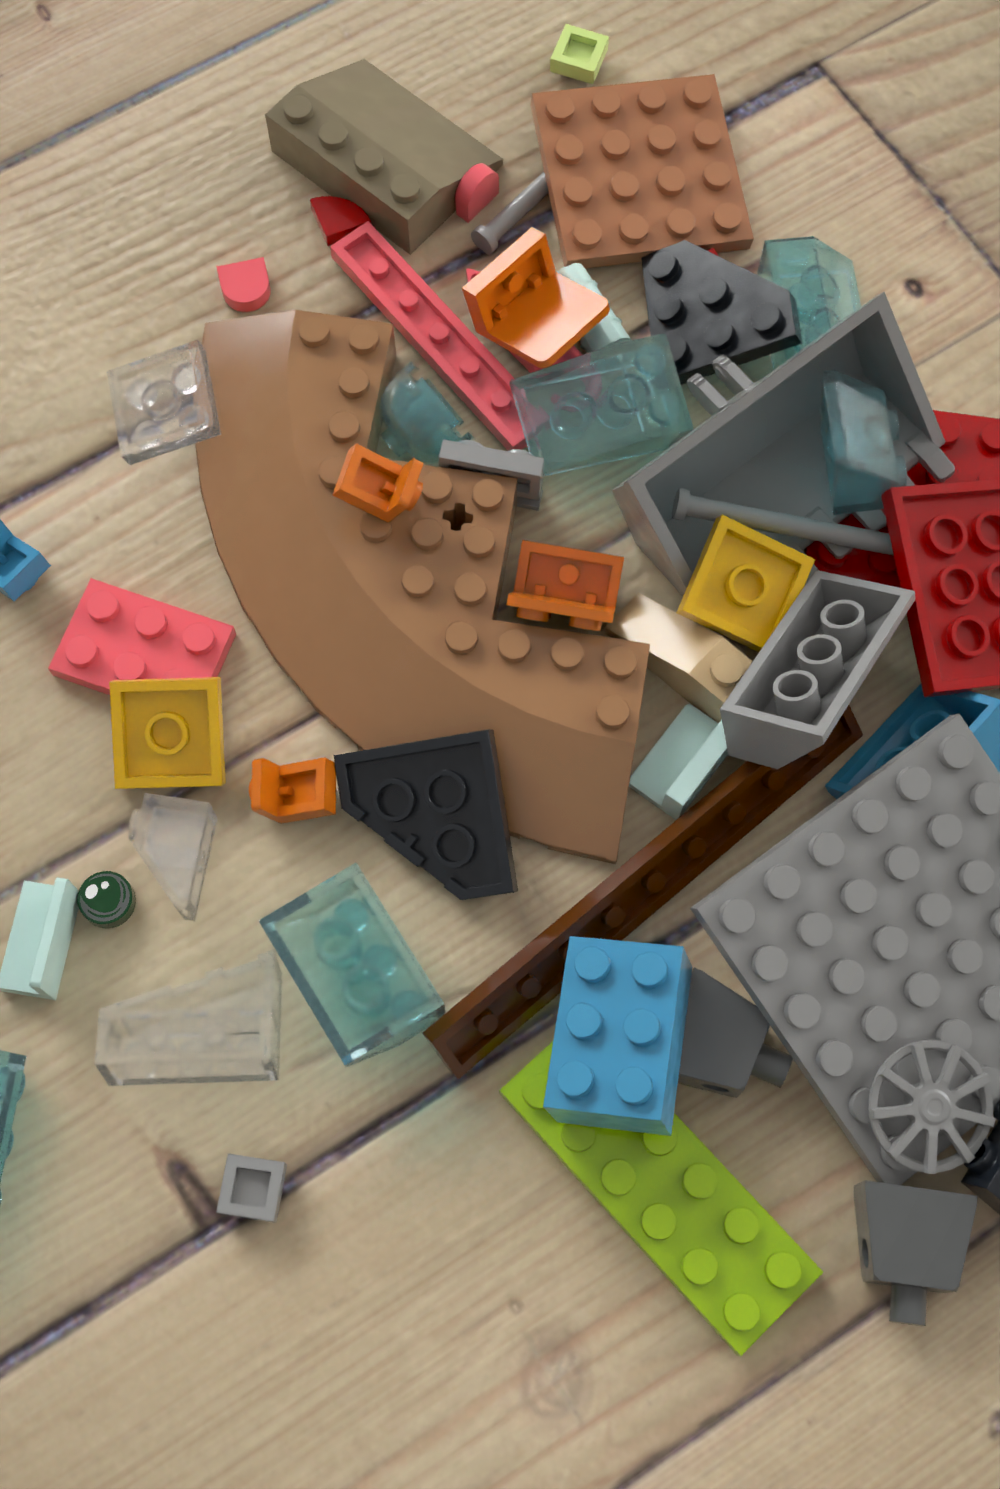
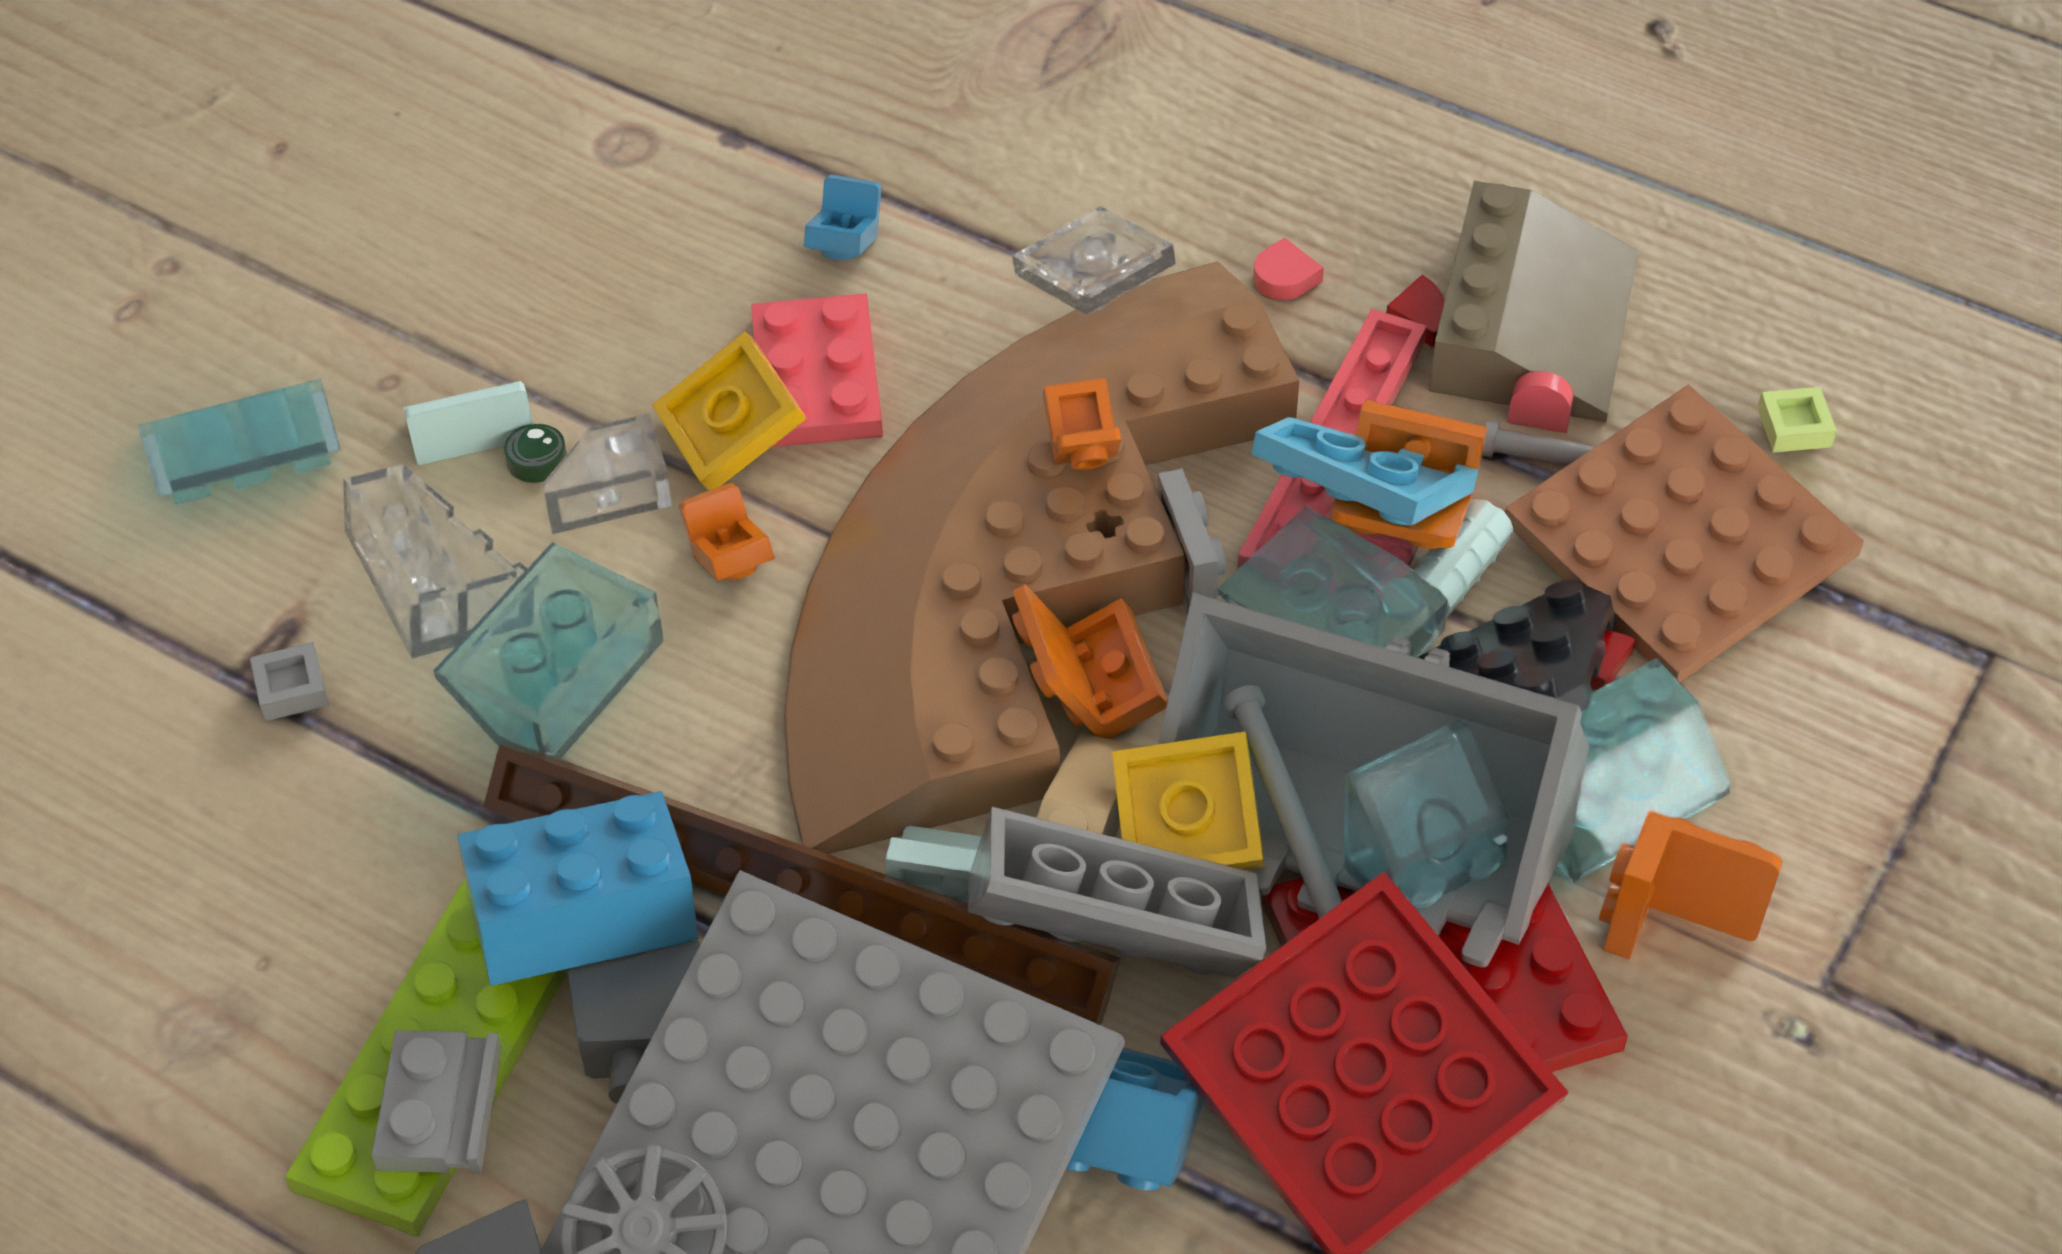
camera: 65 degrees right, 20 degrees down
(417, 417) = (1215, 454): clear light blue cylinder -> none
(437, 808) = (771, 661): black plate -> none
(529, 321) = (1382, 480): none -> medium azure wing
(742, 1215) = (436, 1102): none -> light grey plate
(936, 334) = (1690, 877): none -> orange bracket

